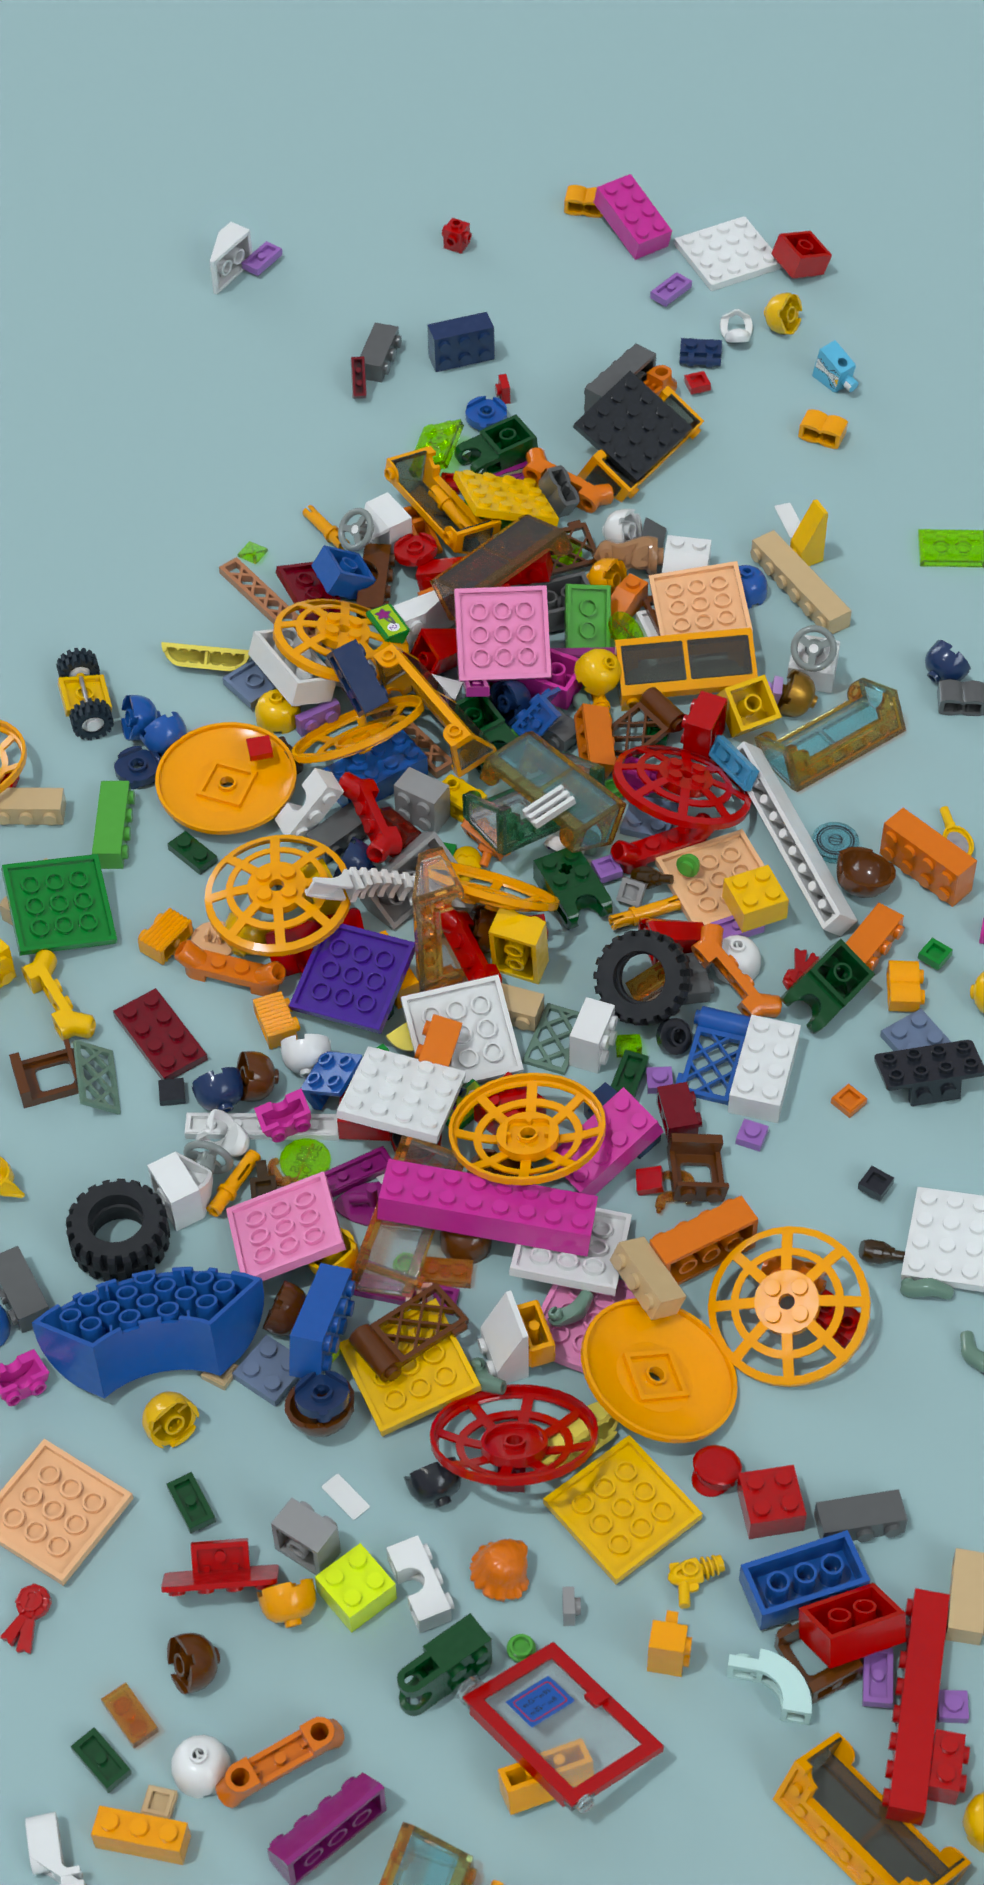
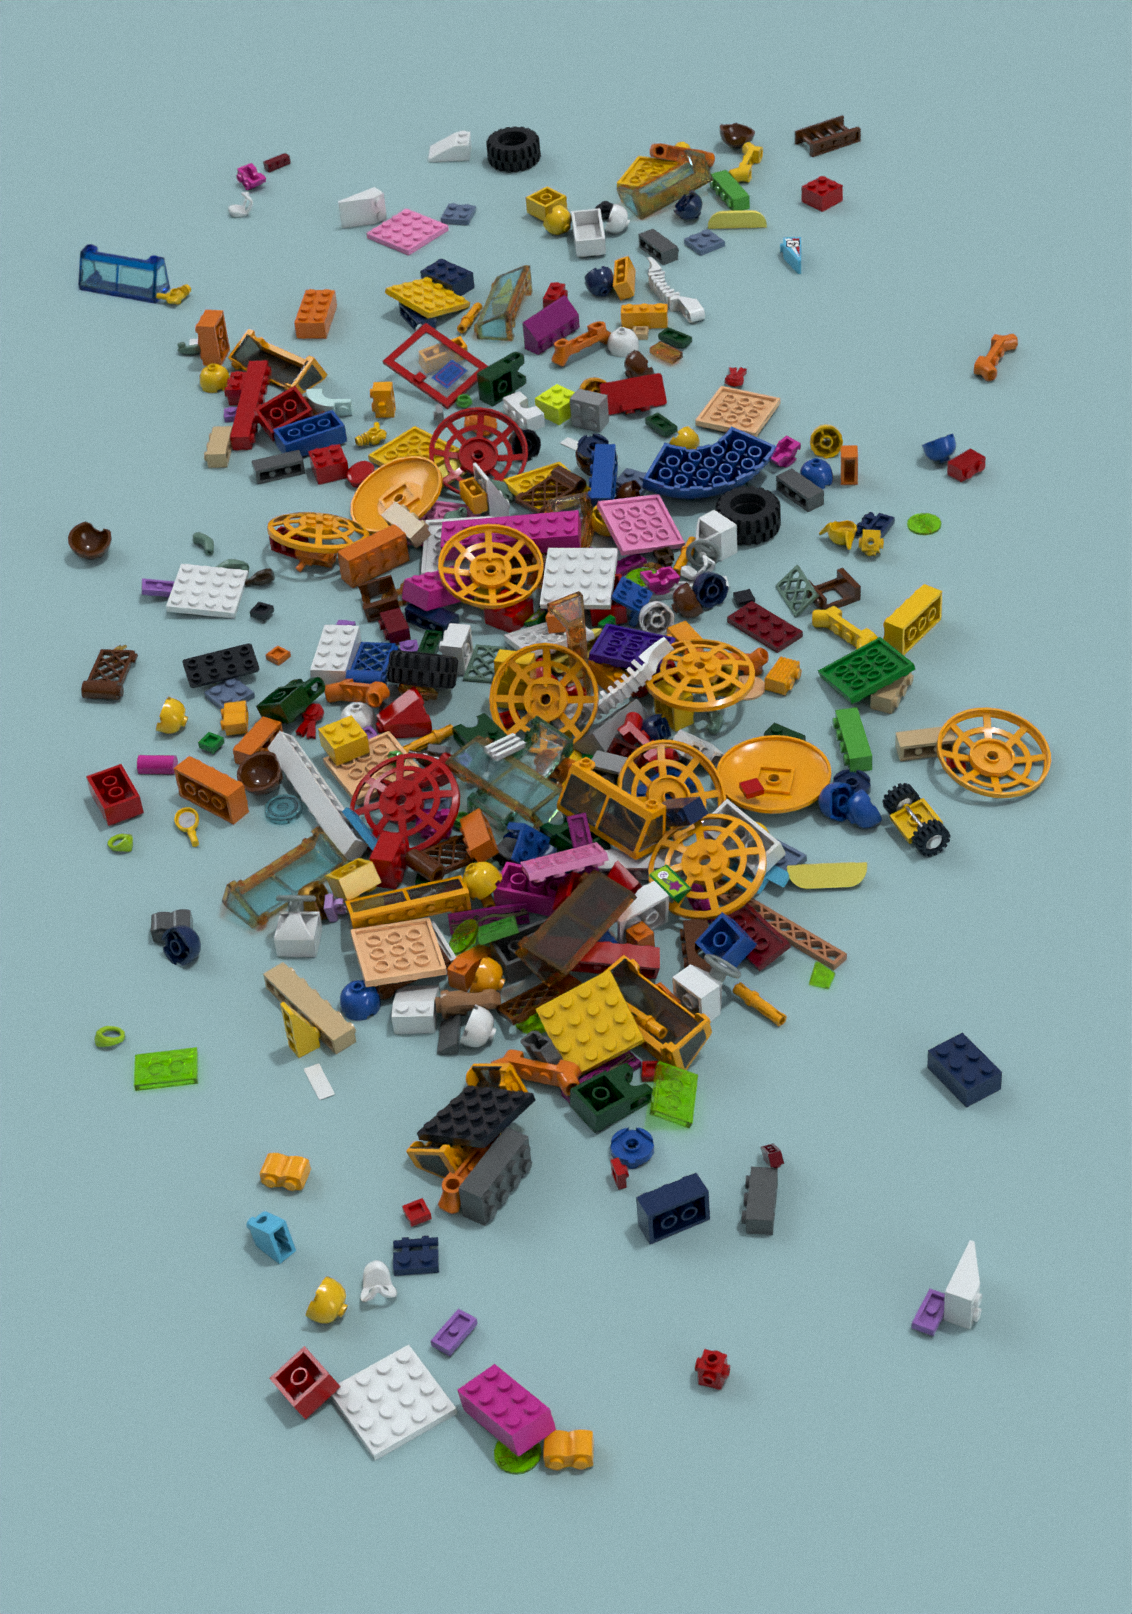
camera: 175 degrees right, 10 degrees down
(150, 434) = (964, 1069): none -> dark blue brick
(415, 550) = (662, 969): red tile -> none

